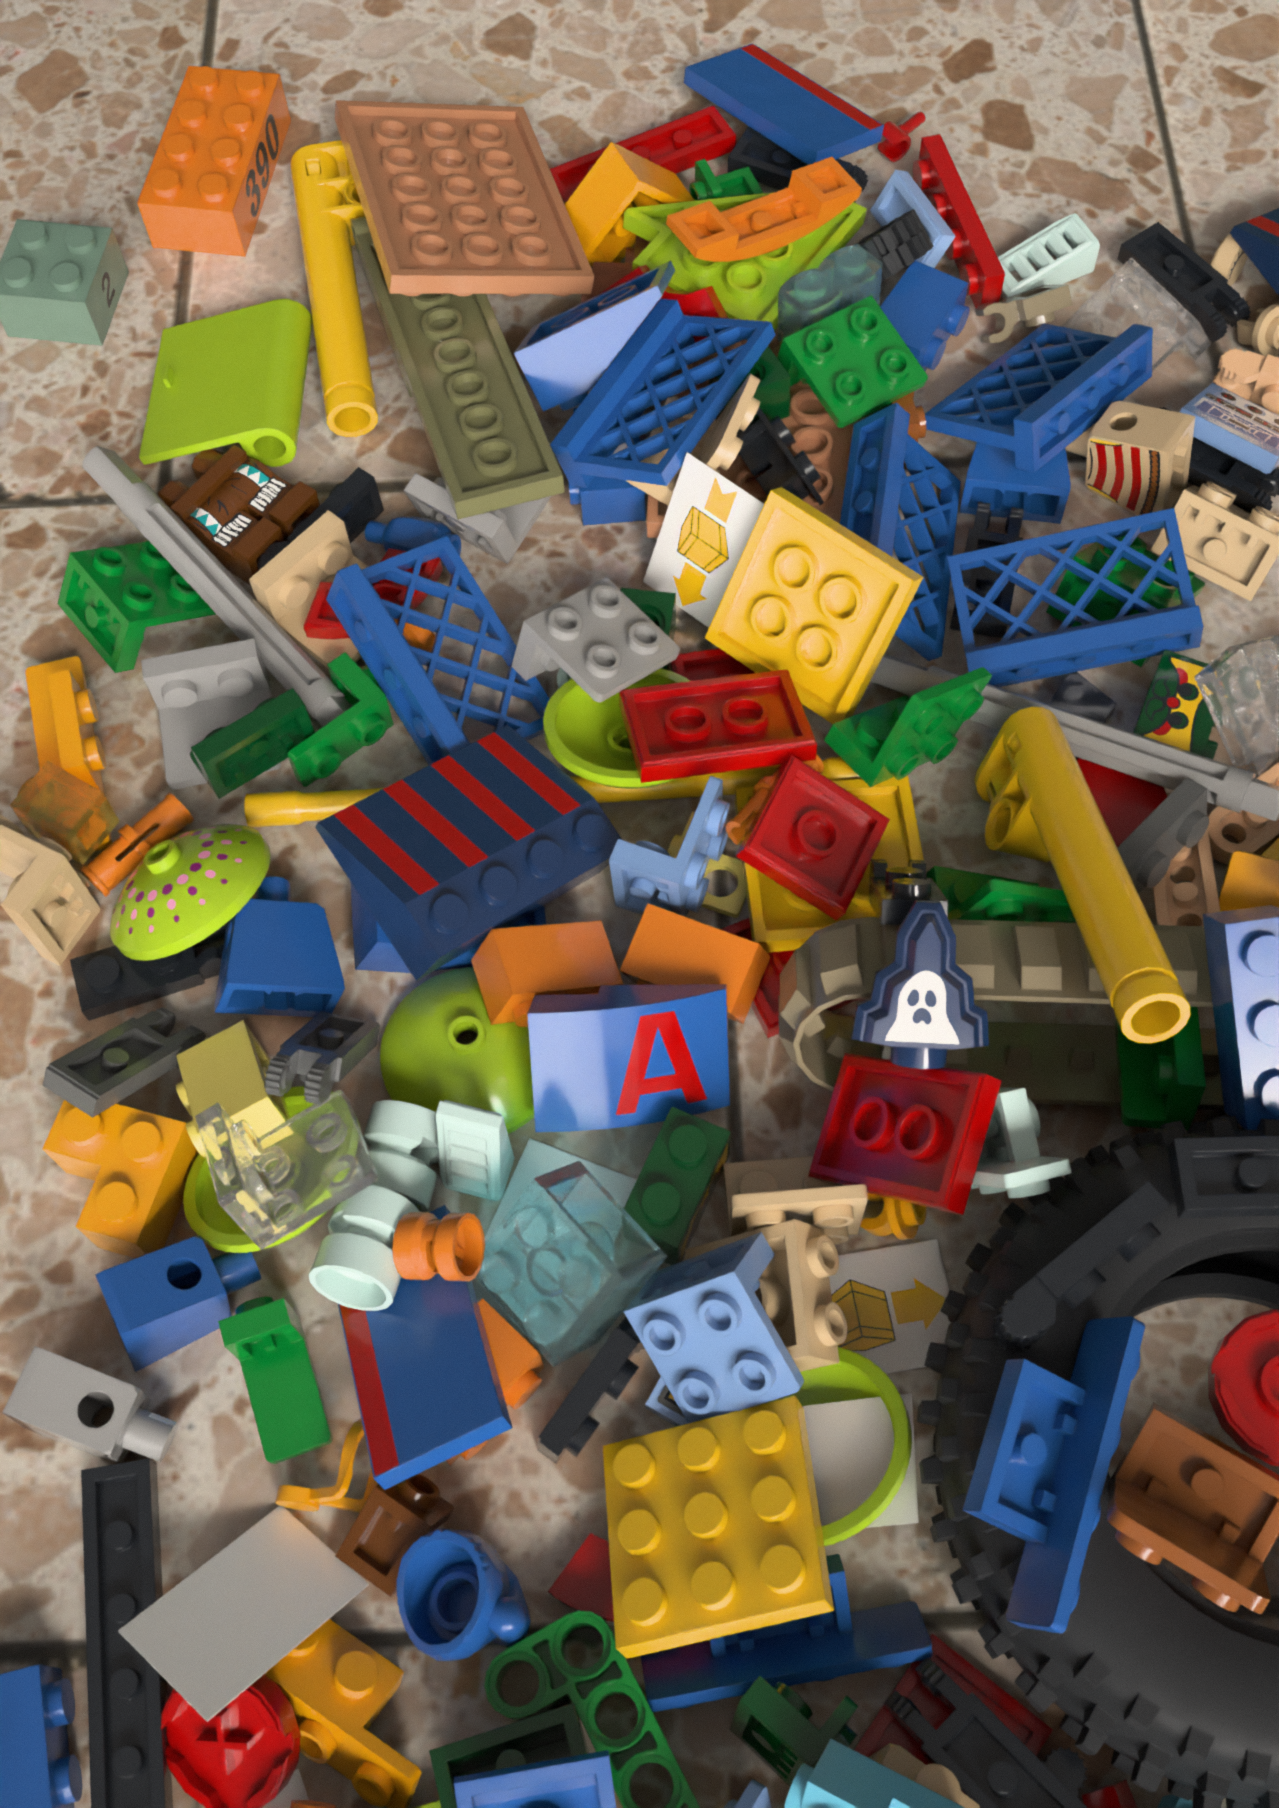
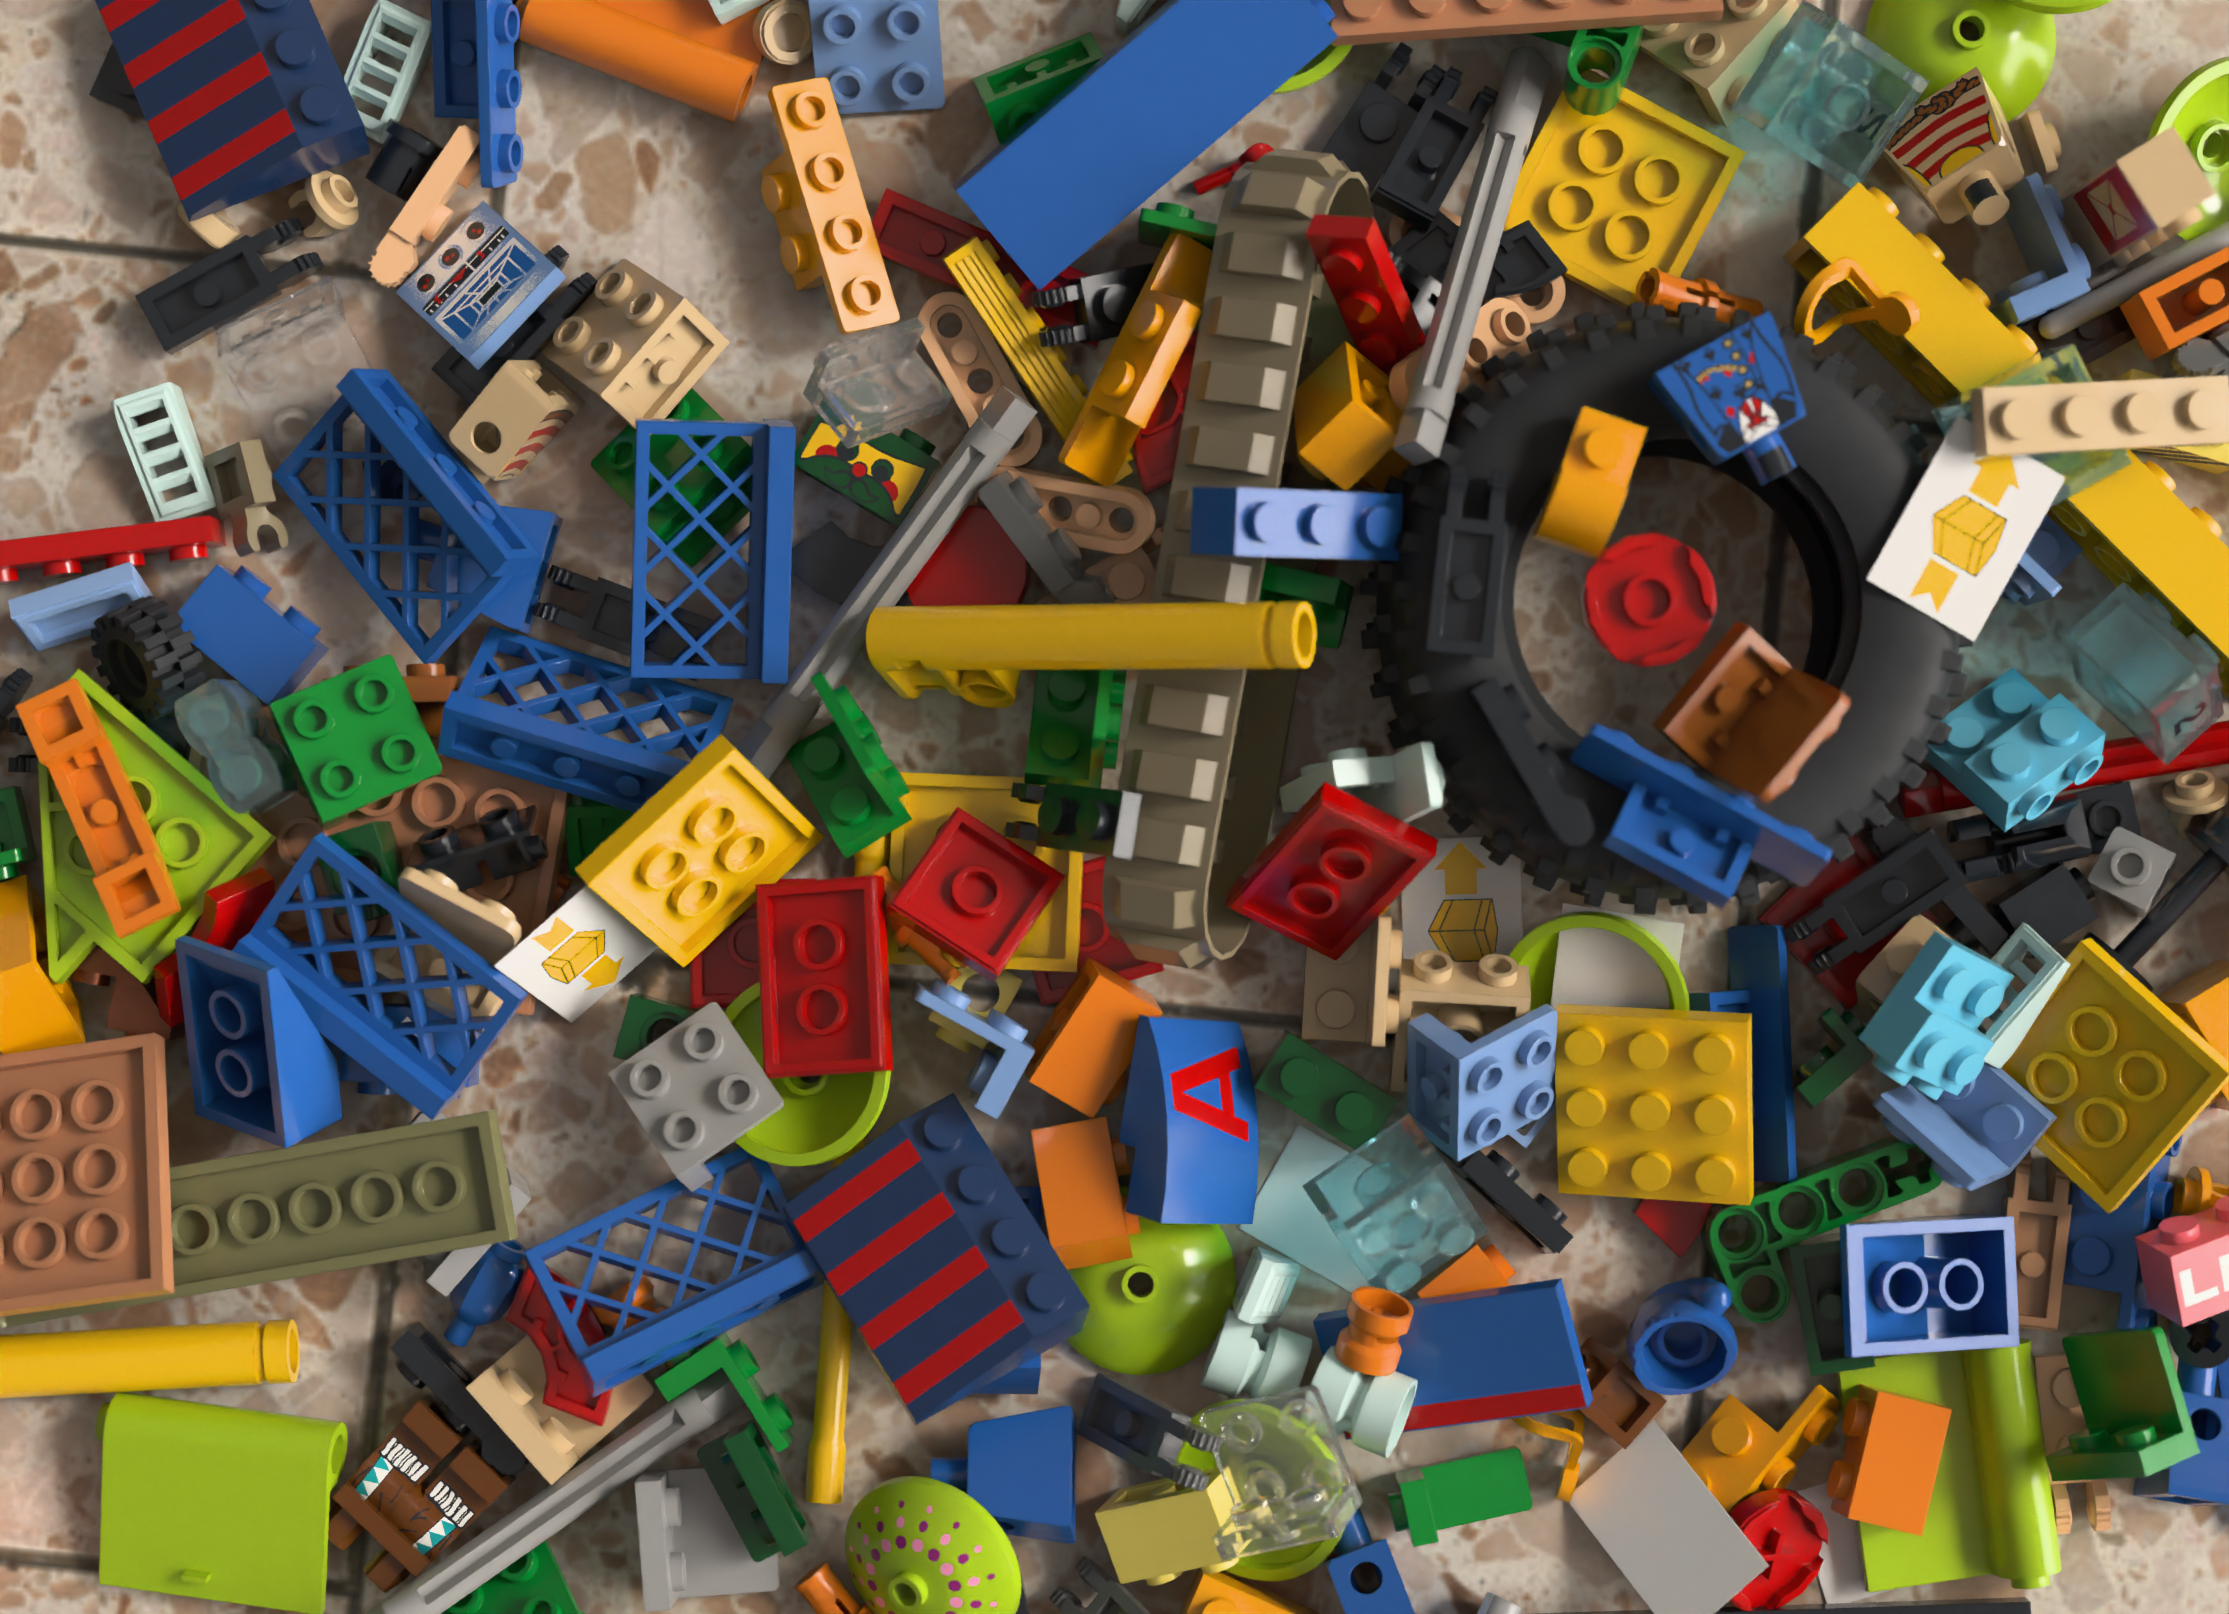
camera: 85 degrees left, 25 degrees up
(921, 997) = (1231, 839): dark blue rock -> none

